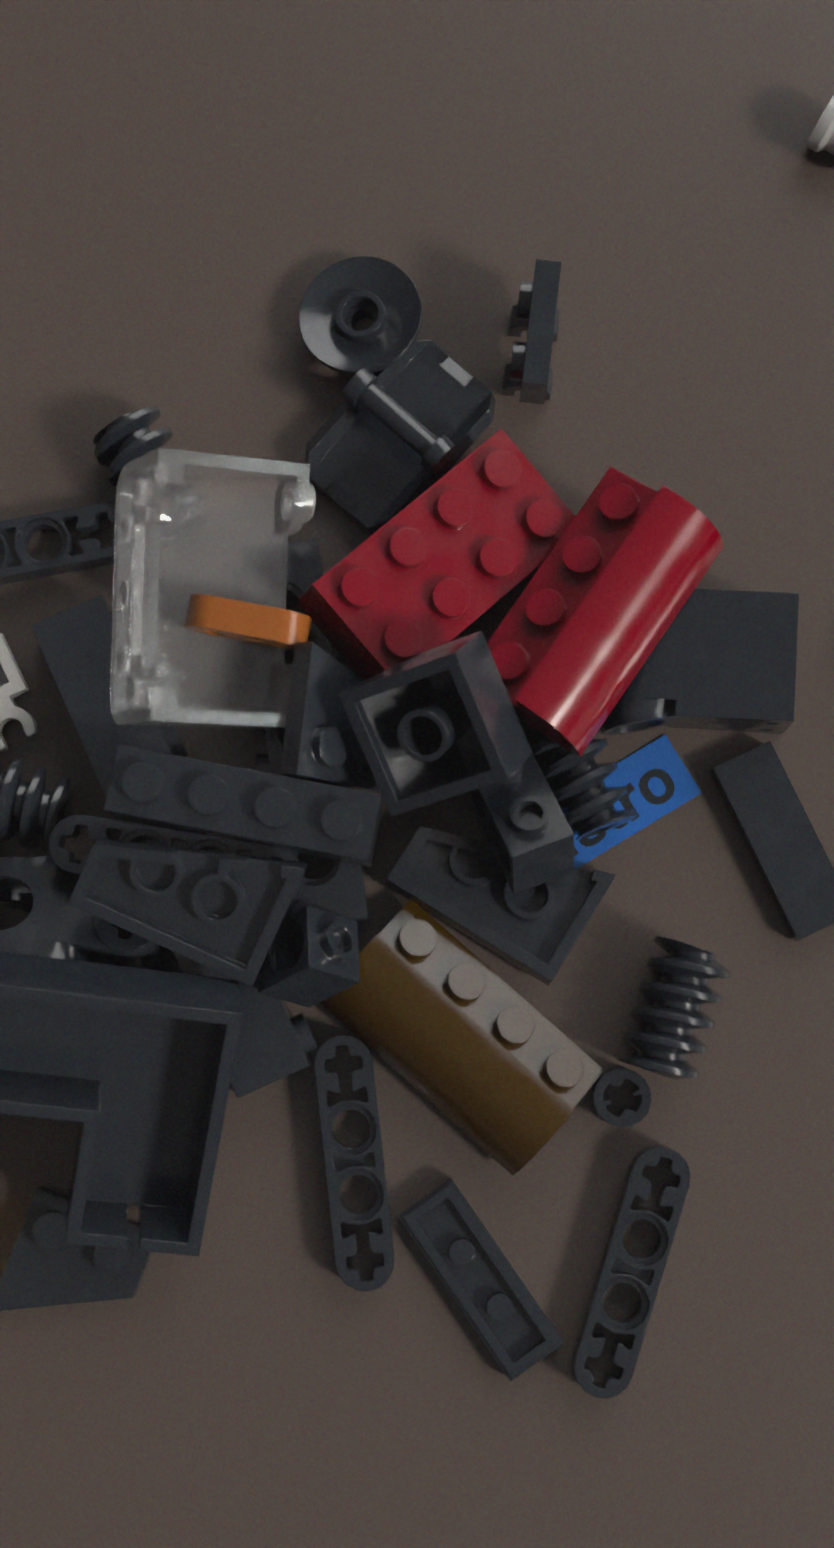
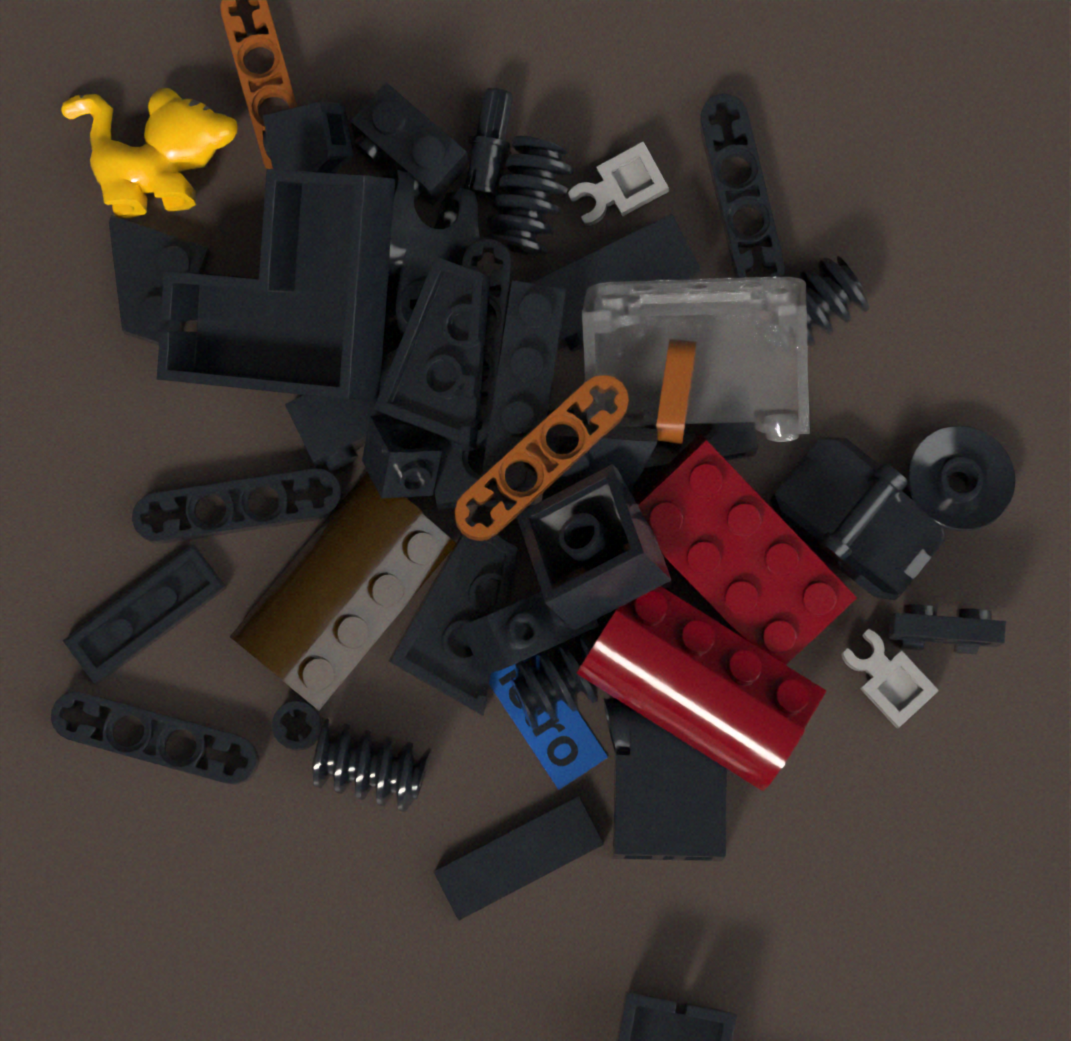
camera: 85 degrees right, 0 degrees up
(322, 782) = (536, 452): none -> dark orange beam
(592, 403) = (894, 685): none -> light grey plate

